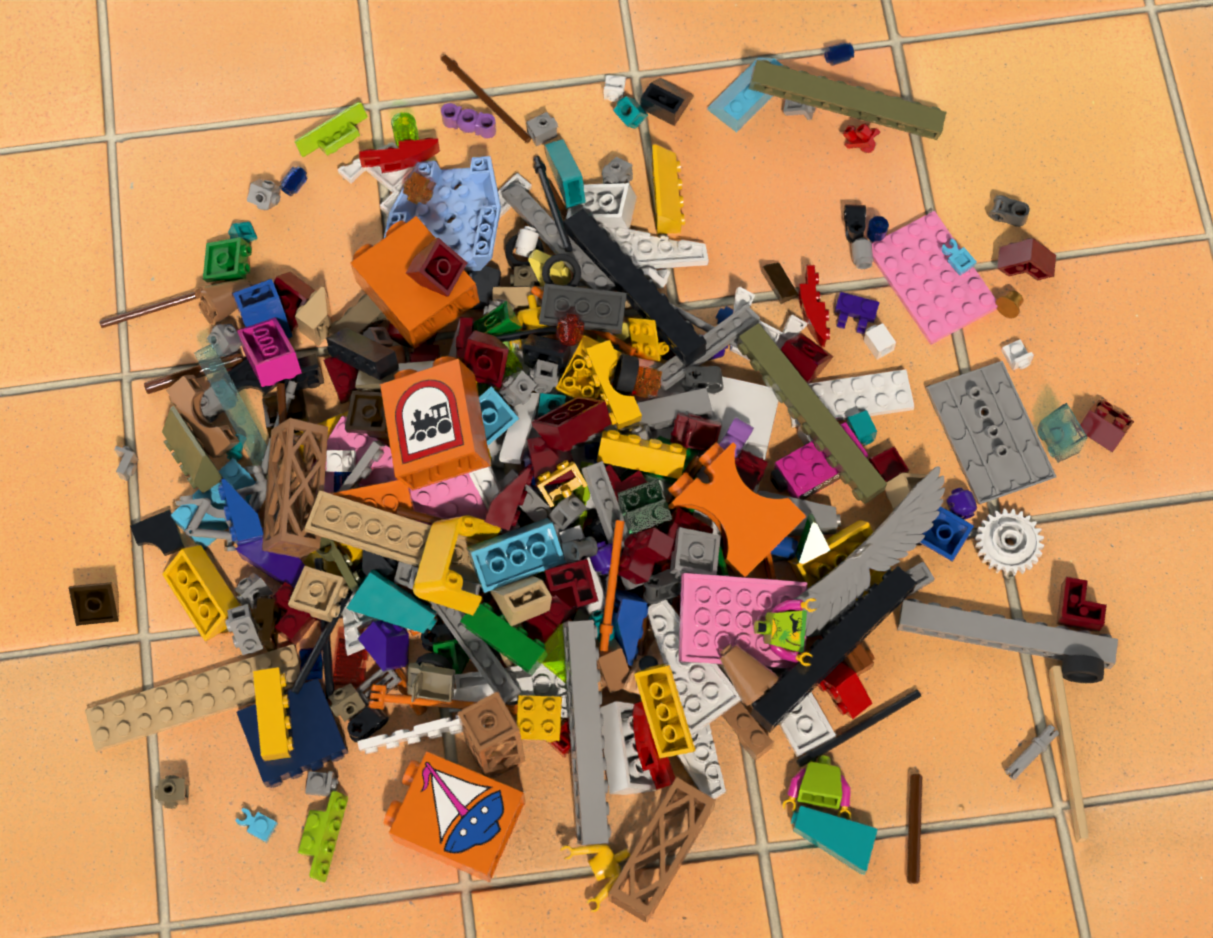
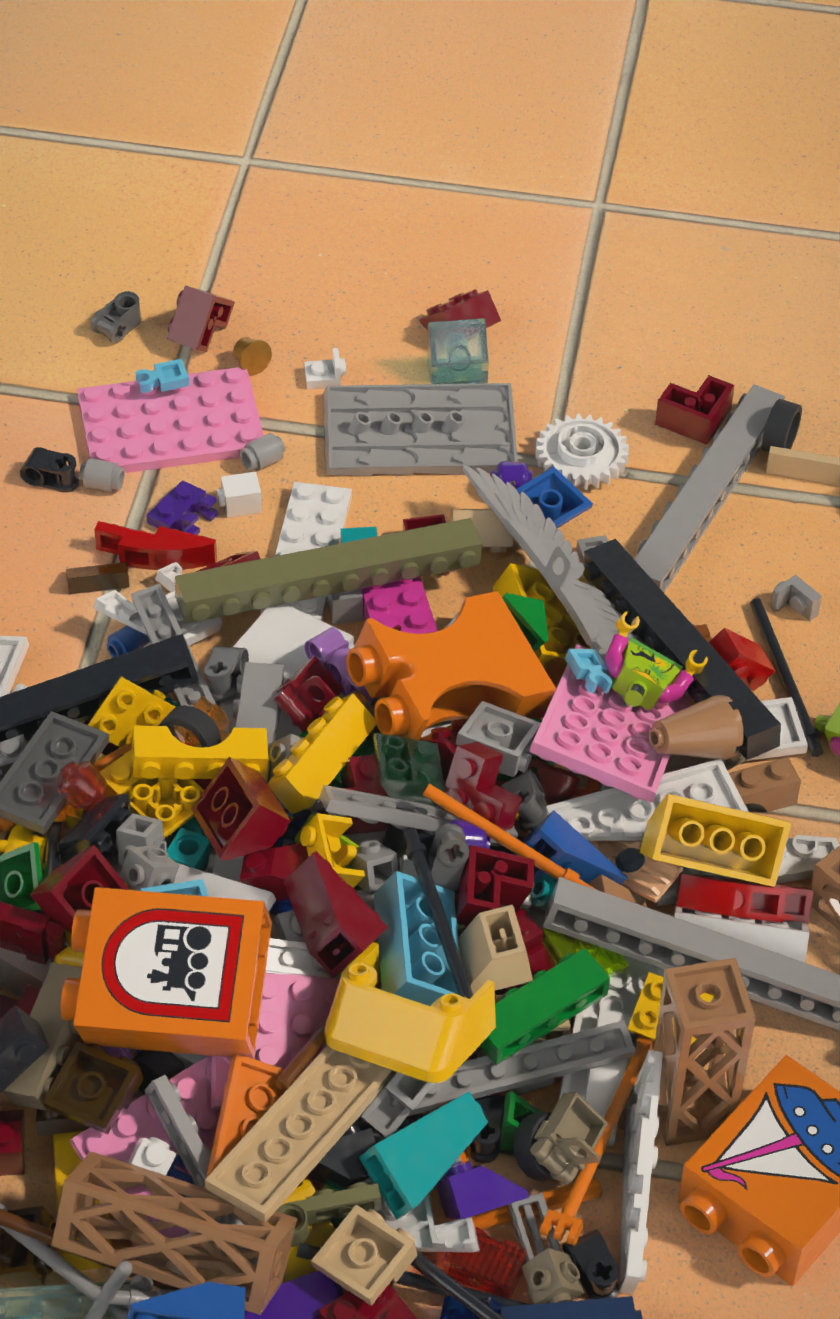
camera: 75 degrees left, 20 degrees down
(572, 531) = (416, 852): none -> black bar
(776, 593) = (589, 666): none -> medium azure plate
(877, 228) = (77, 443): clear blue brick -> none
(923, 341) = (262, 452): none -> light grey brick
(928, 722) = (798, 595): none -> light grey bracket

